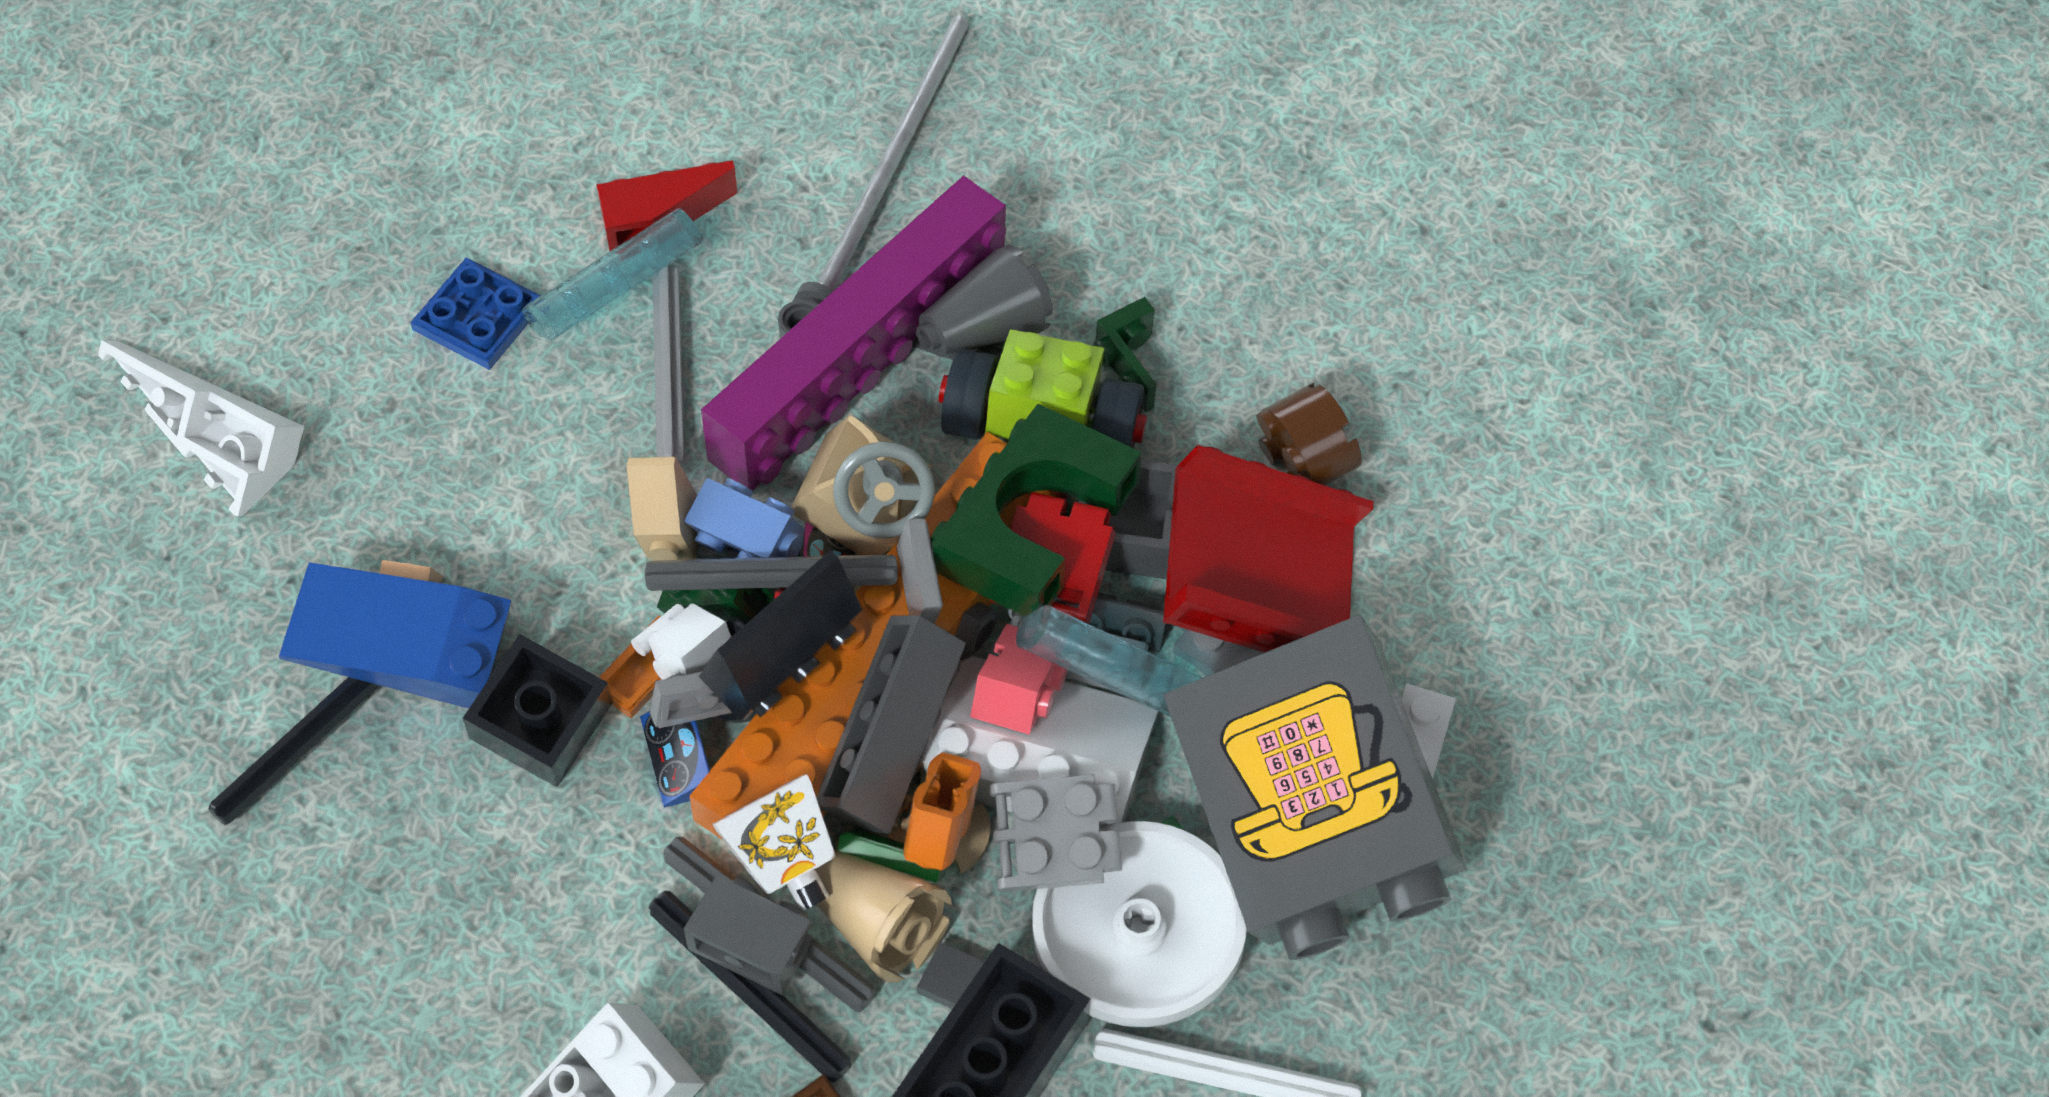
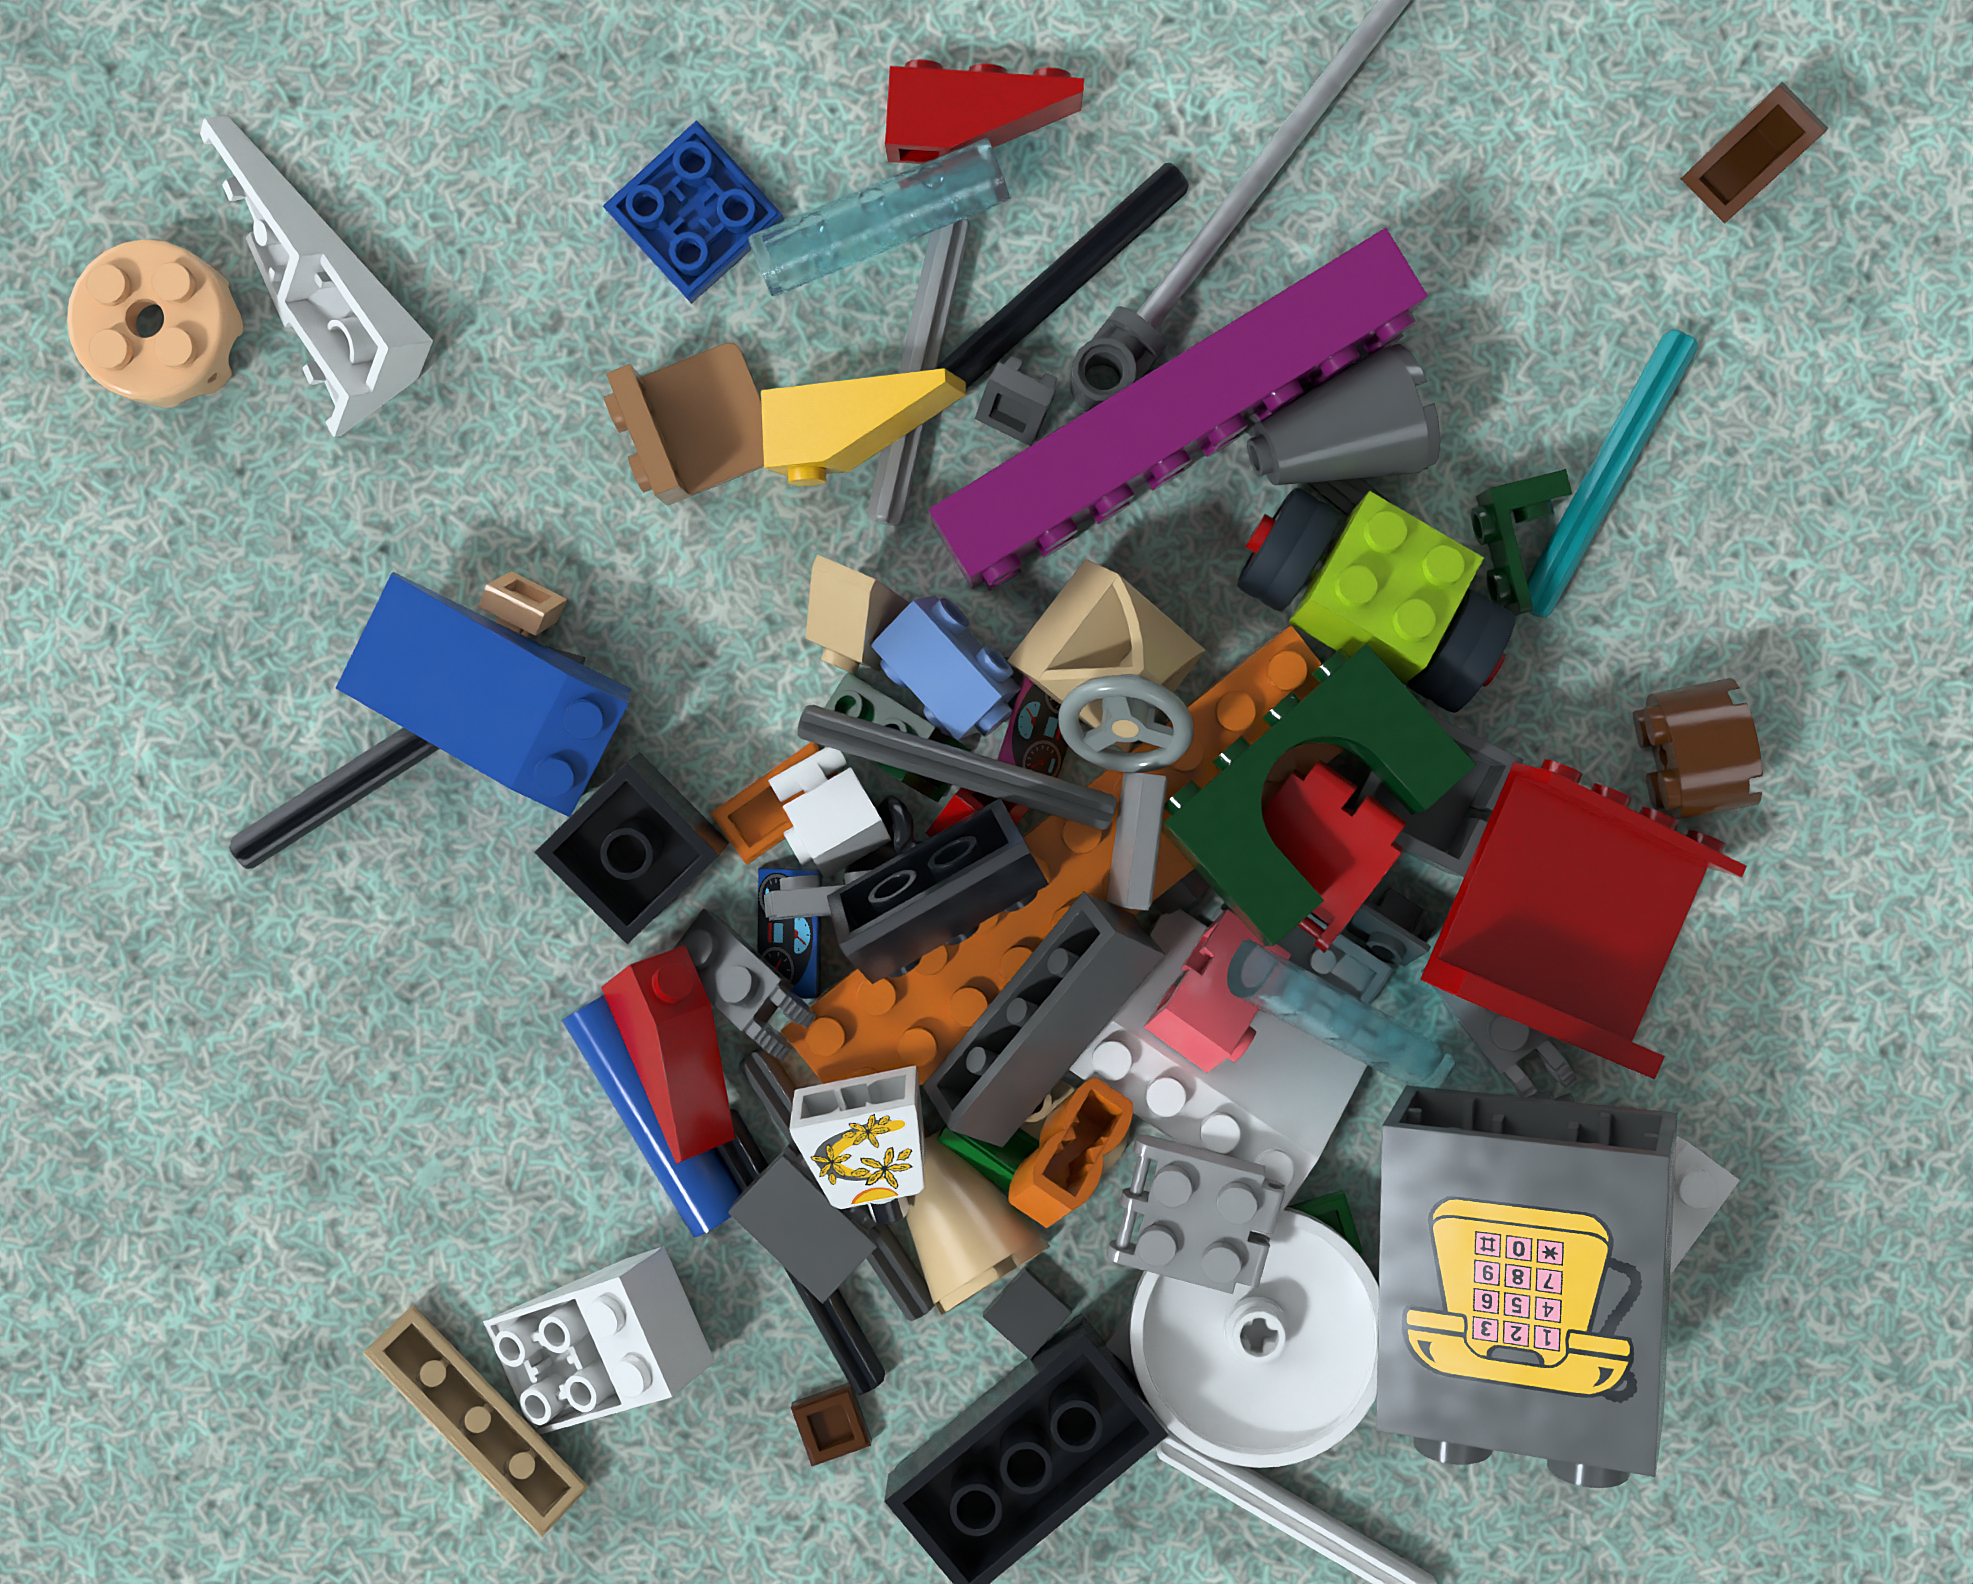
camera: 20 degrees right, 30 degrees up
(91, 497) = (197, 333): none -> light nougat plate
(511, 434) = (690, 422): none -> medium nougat bracket
(602, 911) = (698, 1186): none -> blue brick
(606, 839) = (674, 1049): none -> red slope
(628, 394) = (846, 422): none -> yellow slope
(647, 781) = (743, 982): none -> dark grey hinge
(738, 355) = (1016, 401): none -> dark grey tile
(754, 289) = (1067, 274): none -> black axle
(1180, 306) = (1609, 470): none -> teal axle
(1199, 100) = (1754, 152): none -> reddish brown slope

